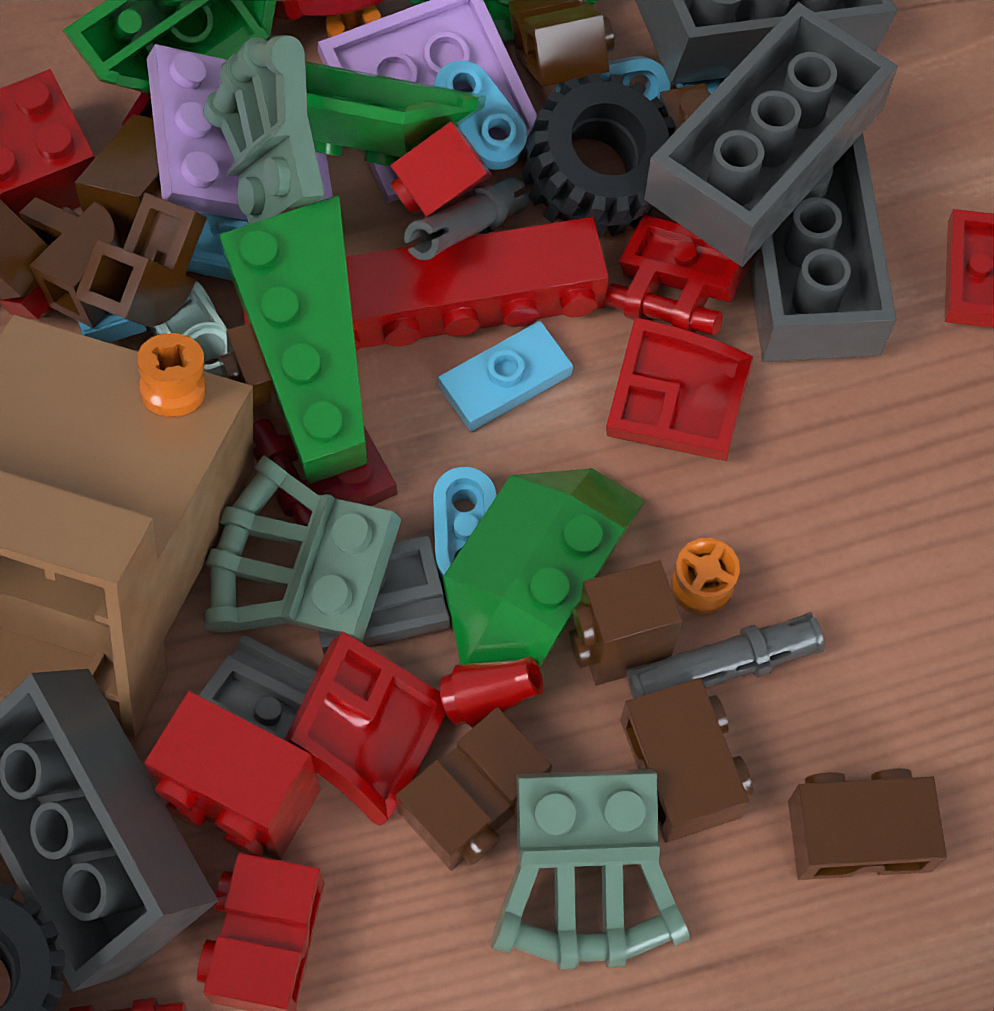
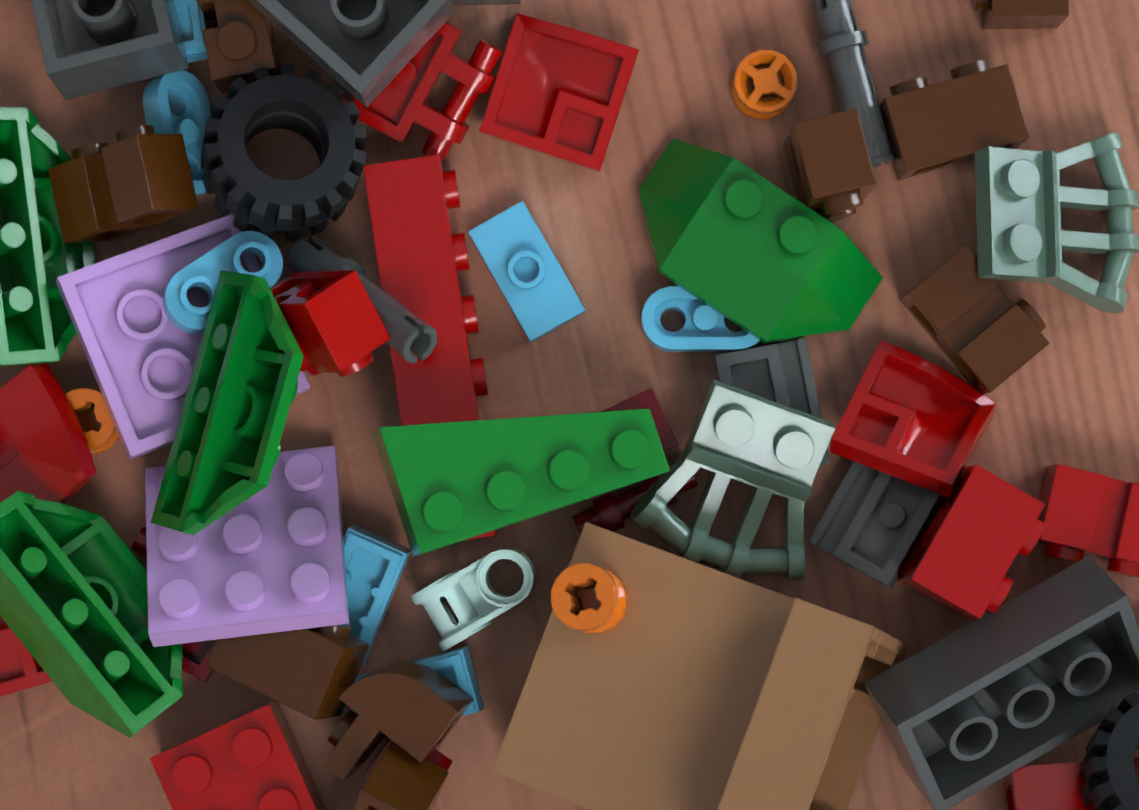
camera: 90 degrees left, 20 degrees up
(148, 275) = (429, 636): reddish brown brick -> none
(246, 363) = (546, 535): reddish brown plate -> none
(267, 127) = (296, 502): sand green plate -> none
(479, 688) = (879, 302): red cone -> none

